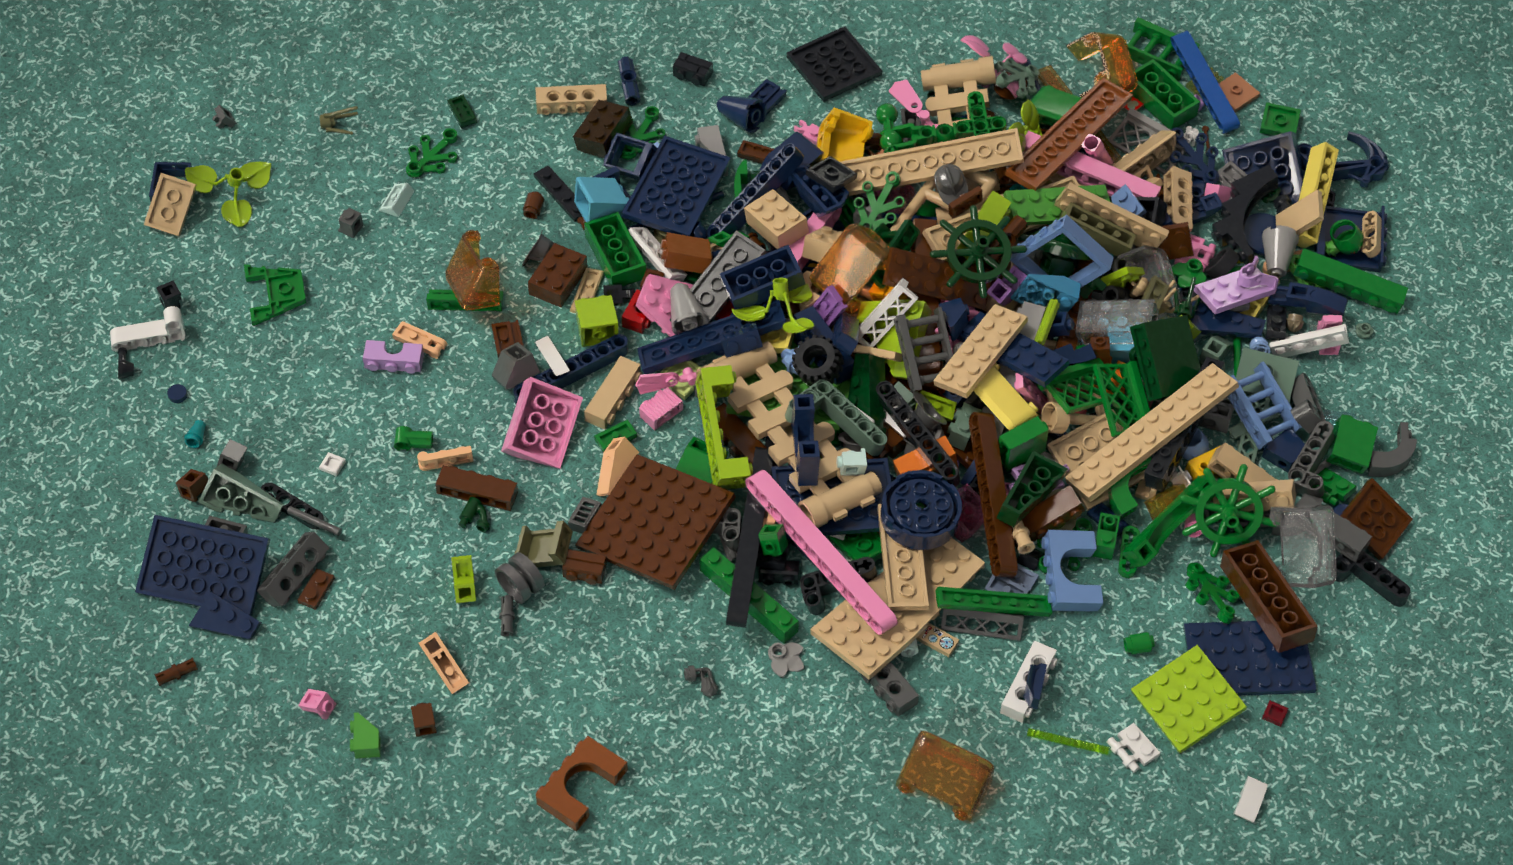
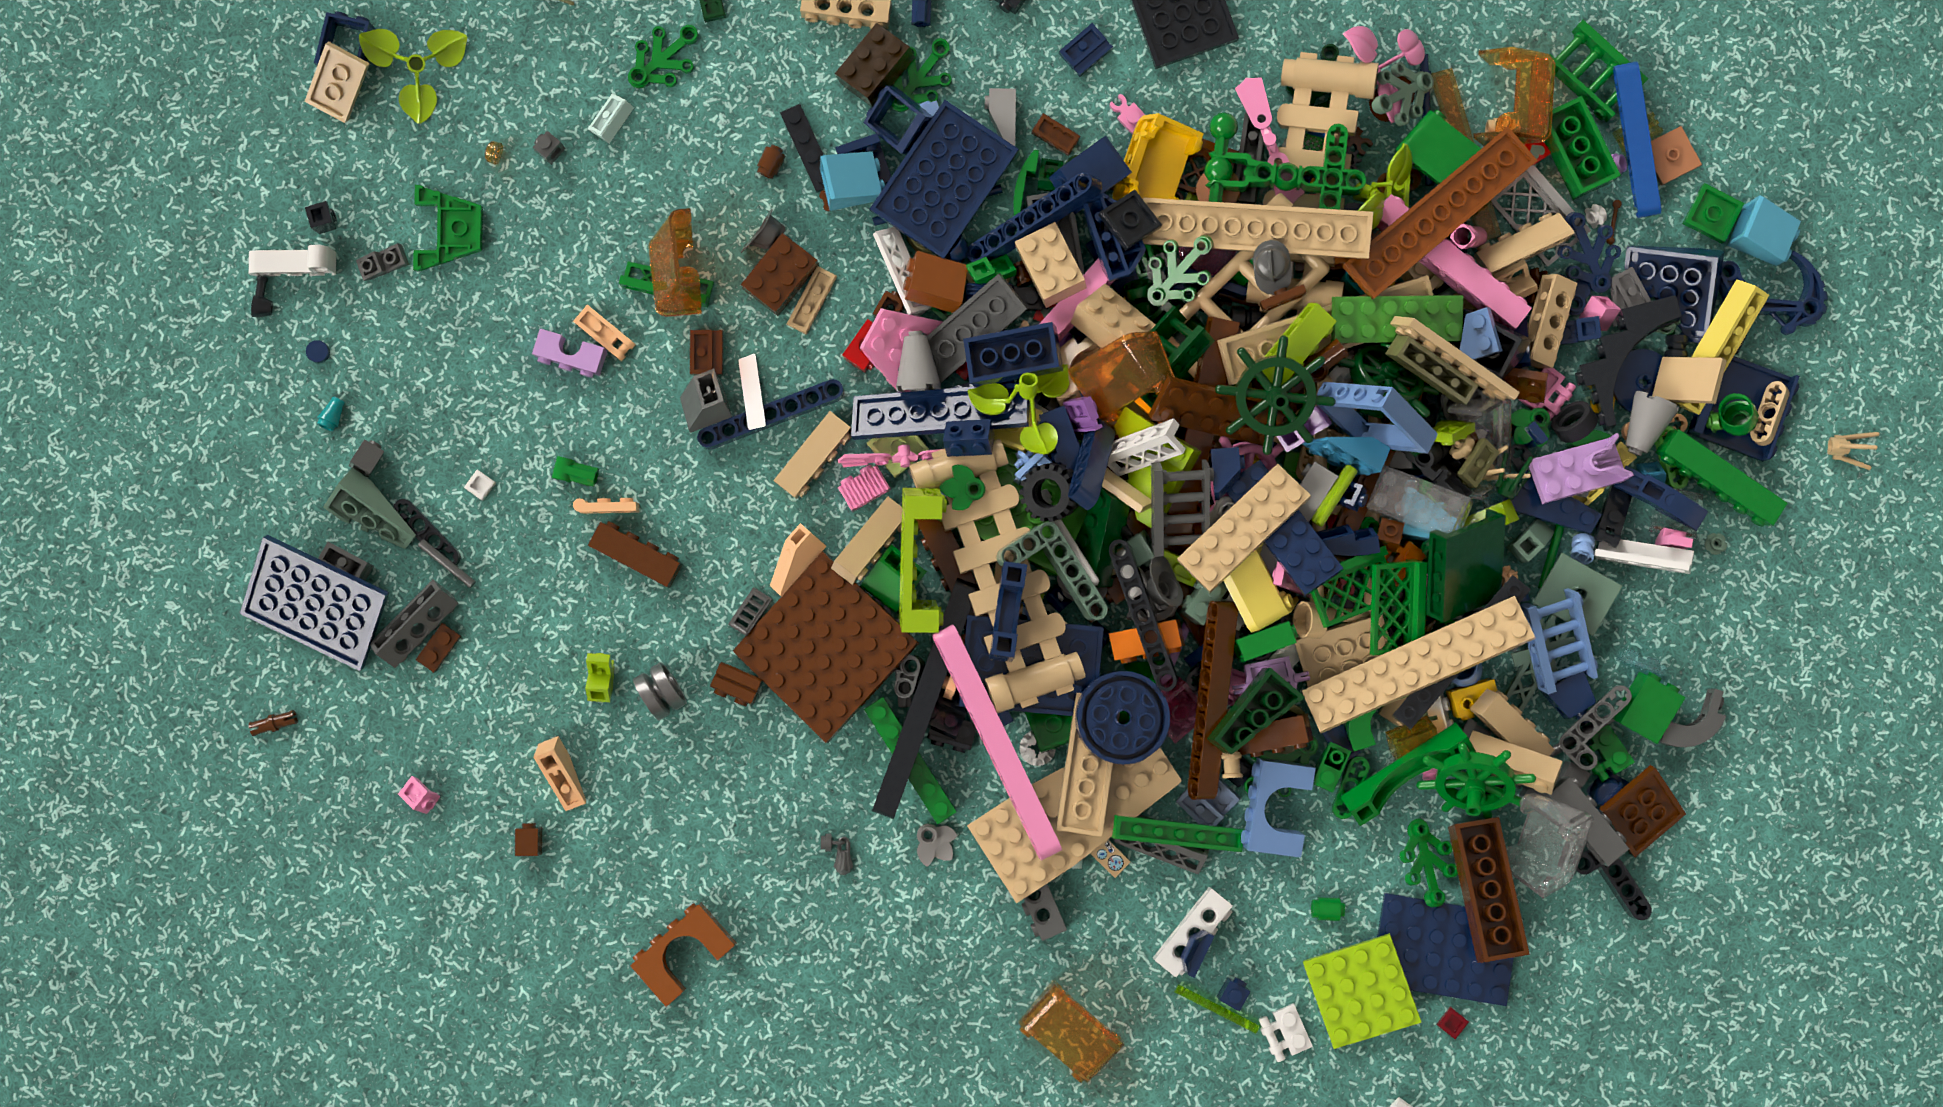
camera: 15 degrees right, 30 degrees up
(192, 484) = (319, 484): reddish brown brick -> none
(218, 325) = (382, 262): none -> dark grey slope
(223, 617) = (333, 668): dark blue wing -> none
(305, 234) = (493, 152): none -> clear orange tile
(366, 738) = (463, 850): bright green slope -> none
(469, 512) = (621, 584): dark green plant -> none
(507, 615) = (640, 728): dark grey pin -> none
(542, 423) = (721, 488): bright pink slope -> none
(545, 546) = (694, 651): olive panel -> none
(596, 319) = (812, 349): lime slope -> none
(615, 249) = (854, 253): green brick -> none
(617, 292) = (843, 314): black plate -> none
(622, 429) = (806, 514): green plate -> none
(675, 437) = (869, 541): none -> tan brick
(743, 111) = (1051, 70): dark blue cone -> none
(743, 372) = (959, 487): none -> green plate
(773, 539) = (948, 712): green brick -> none
(852, 462) = (1058, 641): light aqua brick -> none
(865, 566) = (988, 771): black beam -> none
(1078, 721) = (1234, 993): none -> dark blue brick
(1193, 270) = (1536, 433): none -> dark blue tile
(1294, 322) = (1636, 517): dark tan plate -> none
(1307, 406) = (1612, 658): dark grey beam -> none
(1323, 122) = (1765, 231): none -> medium azure slope
(1434, 250) = (1839, 446): none -> tan plant

